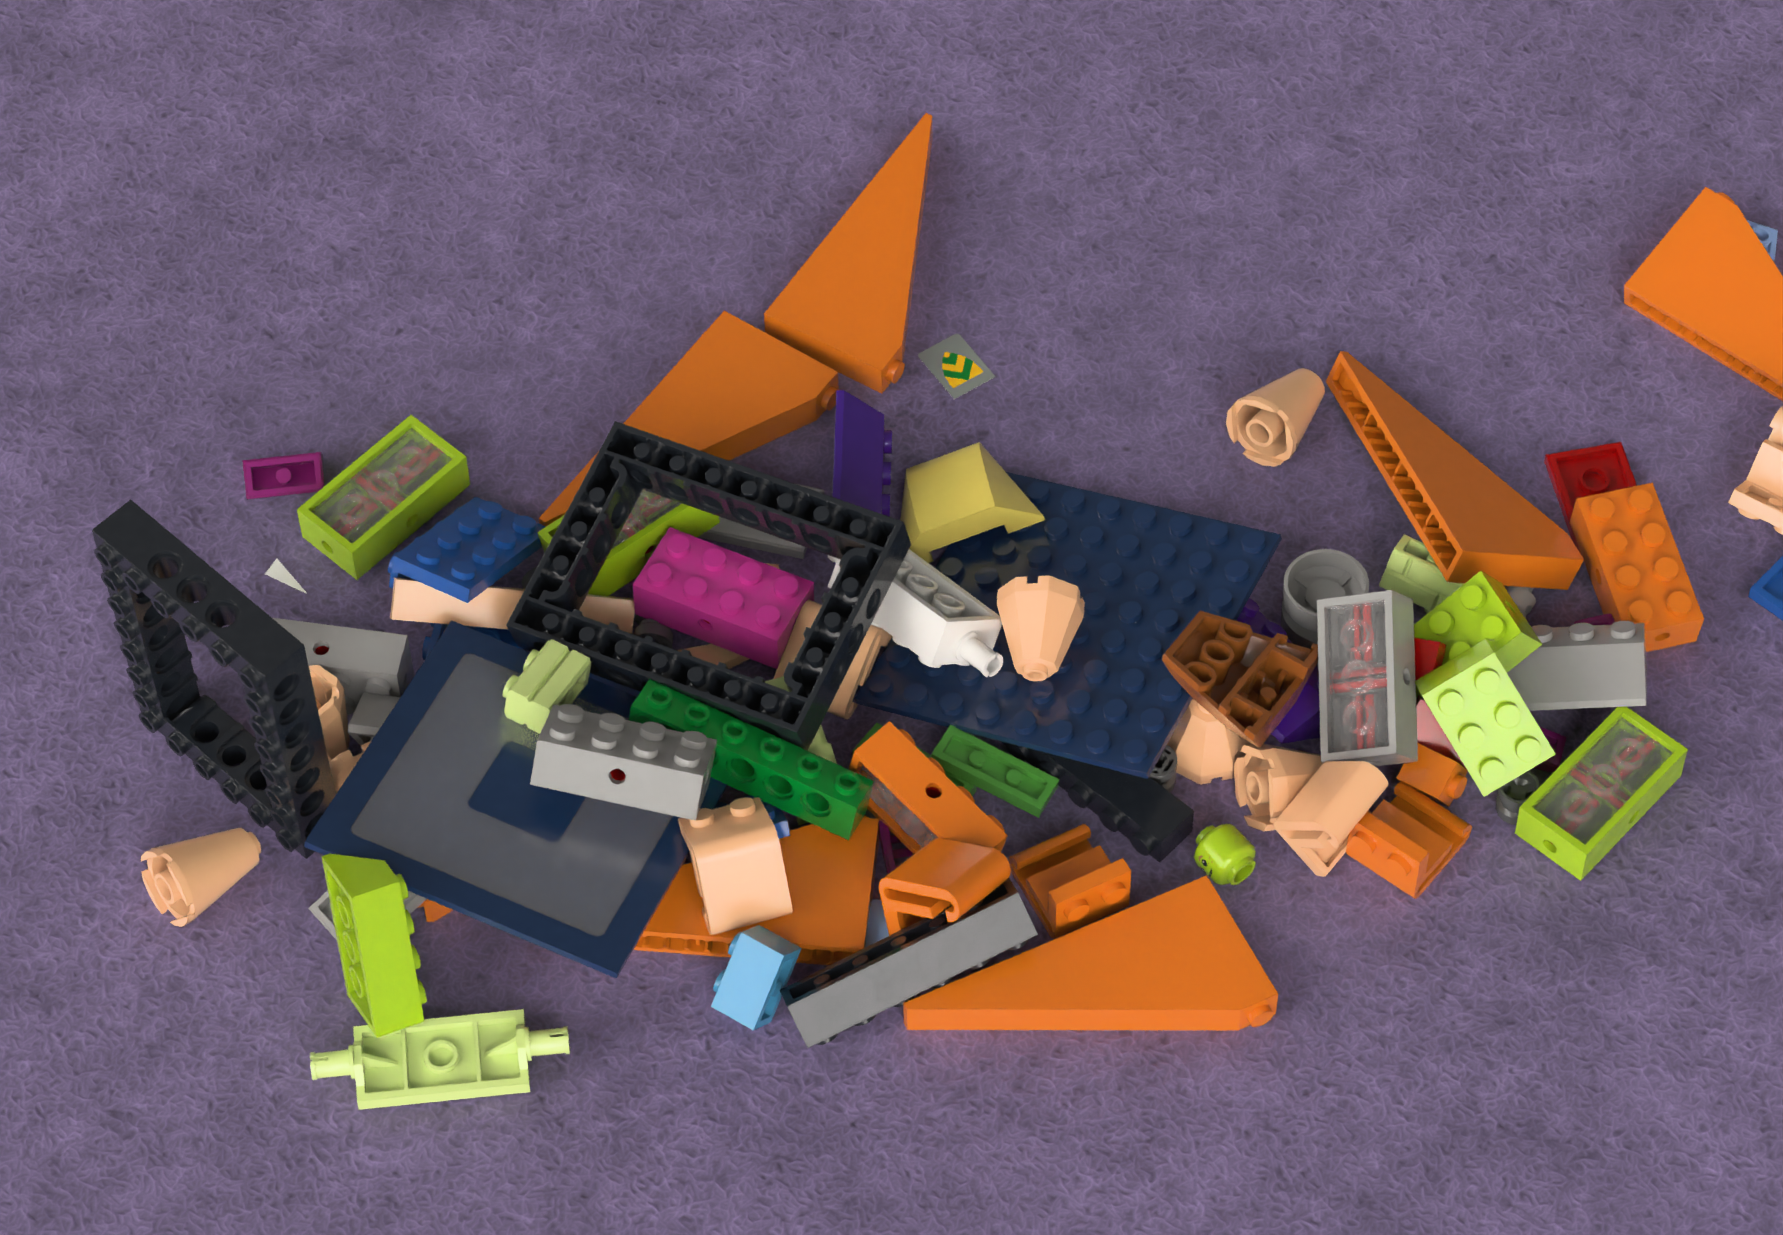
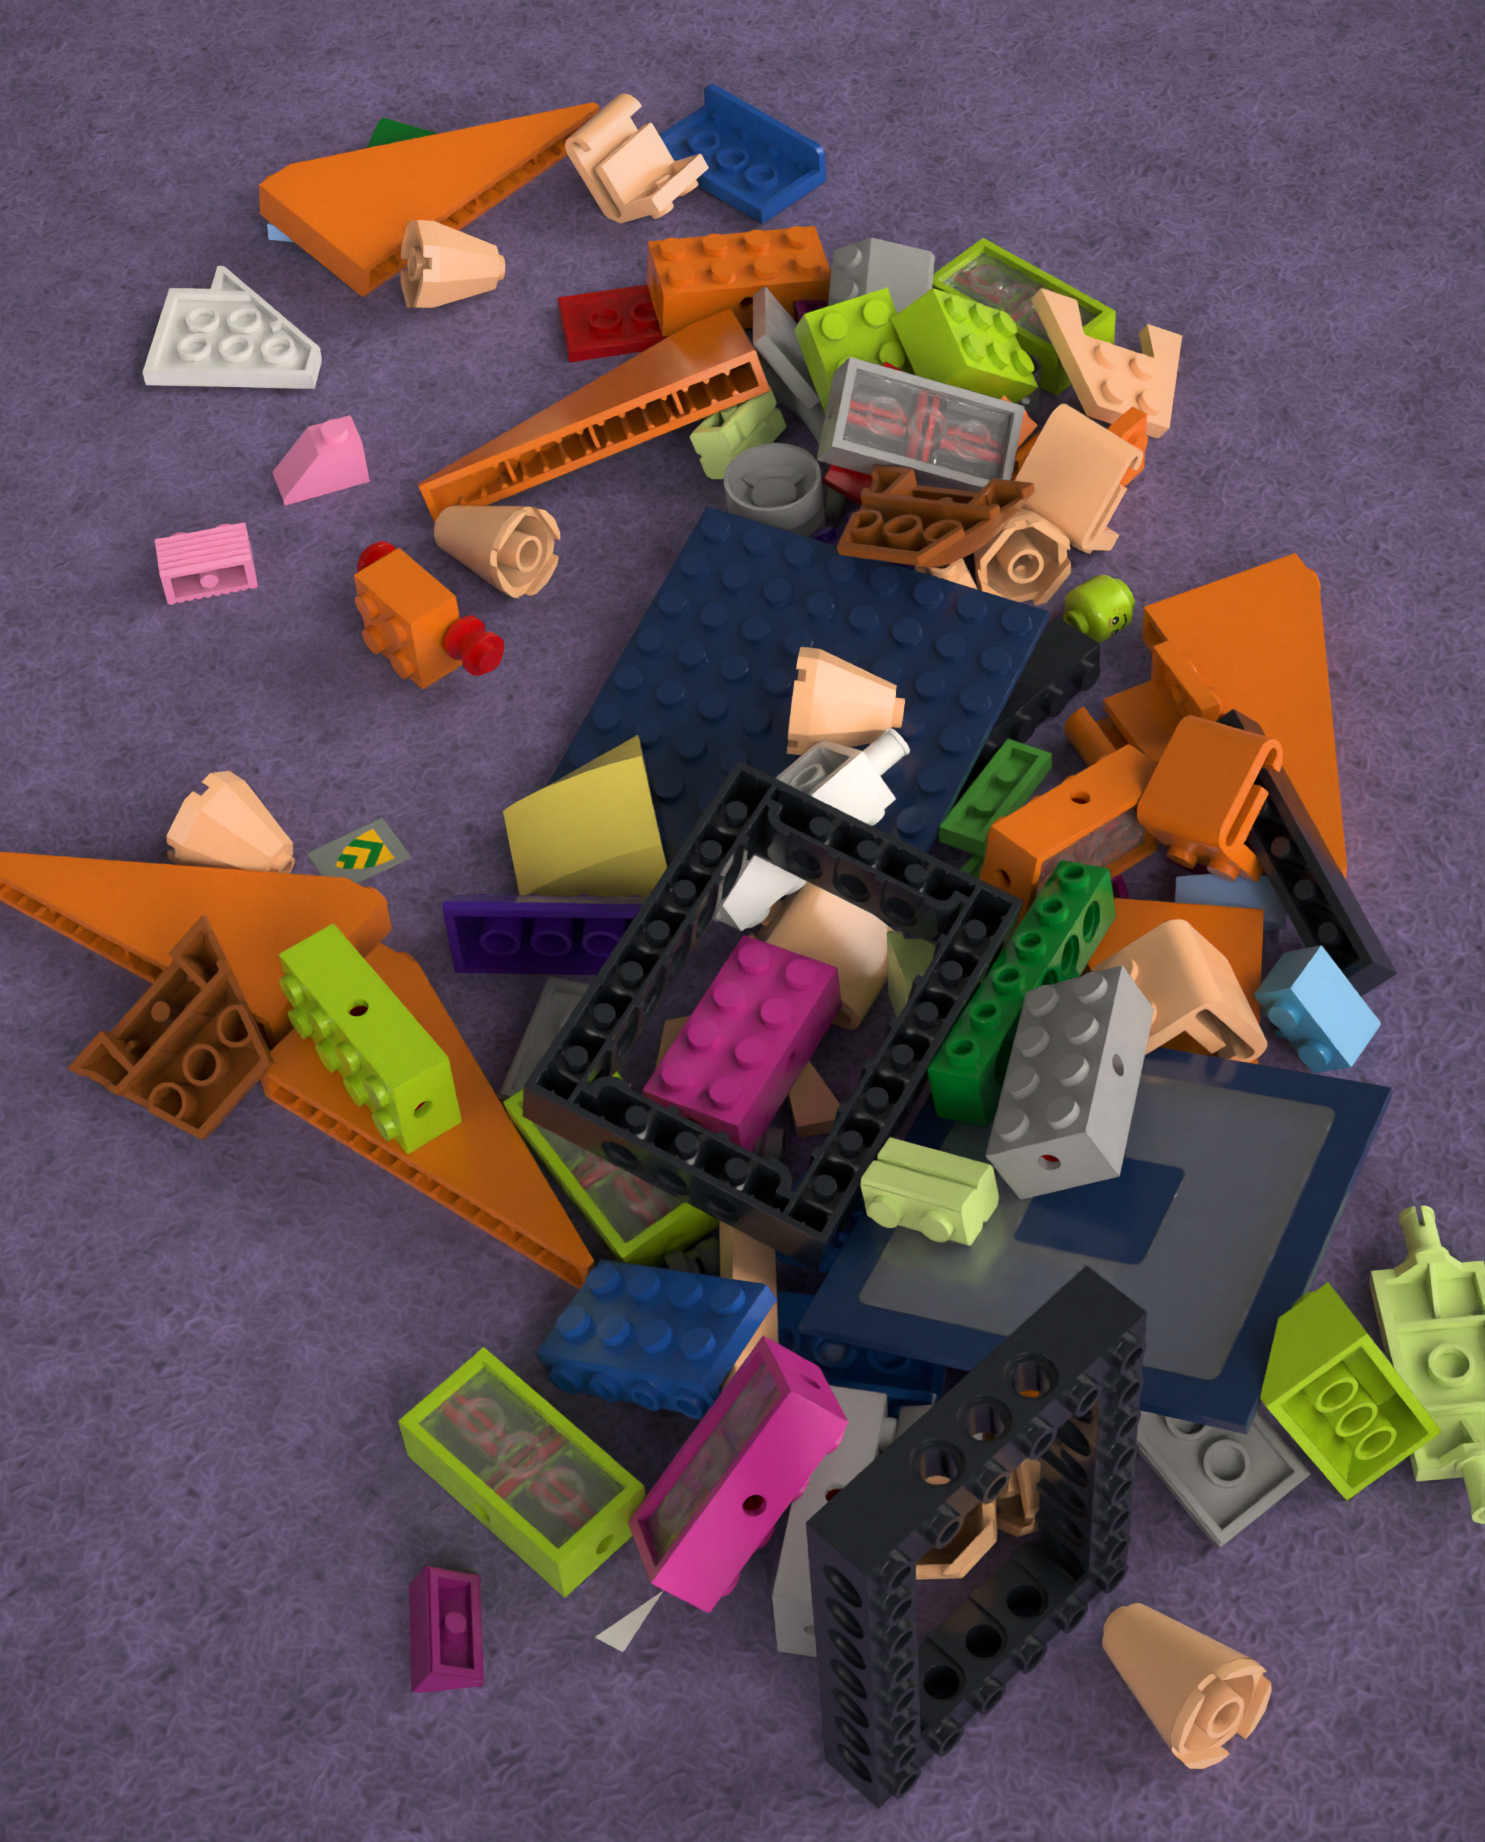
camera: 85 degrees left, 5 degrees down
(339, 593) = (737, 1475): none -> dark pink brick
(715, 357) = (369, 1039): none -> lime brick
(747, 266) = (186, 1043): none -> dark orange wedge
(952, 272) = (228, 830): none -> light nougat cone
(1184, 360) = (418, 620): none -> orange brick
(1261, 225) = (206, 563): none -> bright pink brick
(1386, 293) = (322, 462): none -> bright pink slope
(1505, 869) = (1110, 376): none -> light nougat wing
(1541, 589) = (779, 346): none -> light grey tile
(1545, 208) = (228, 341): none -> white wing
(1638, 347) = (446, 265): none -> light nougat cone

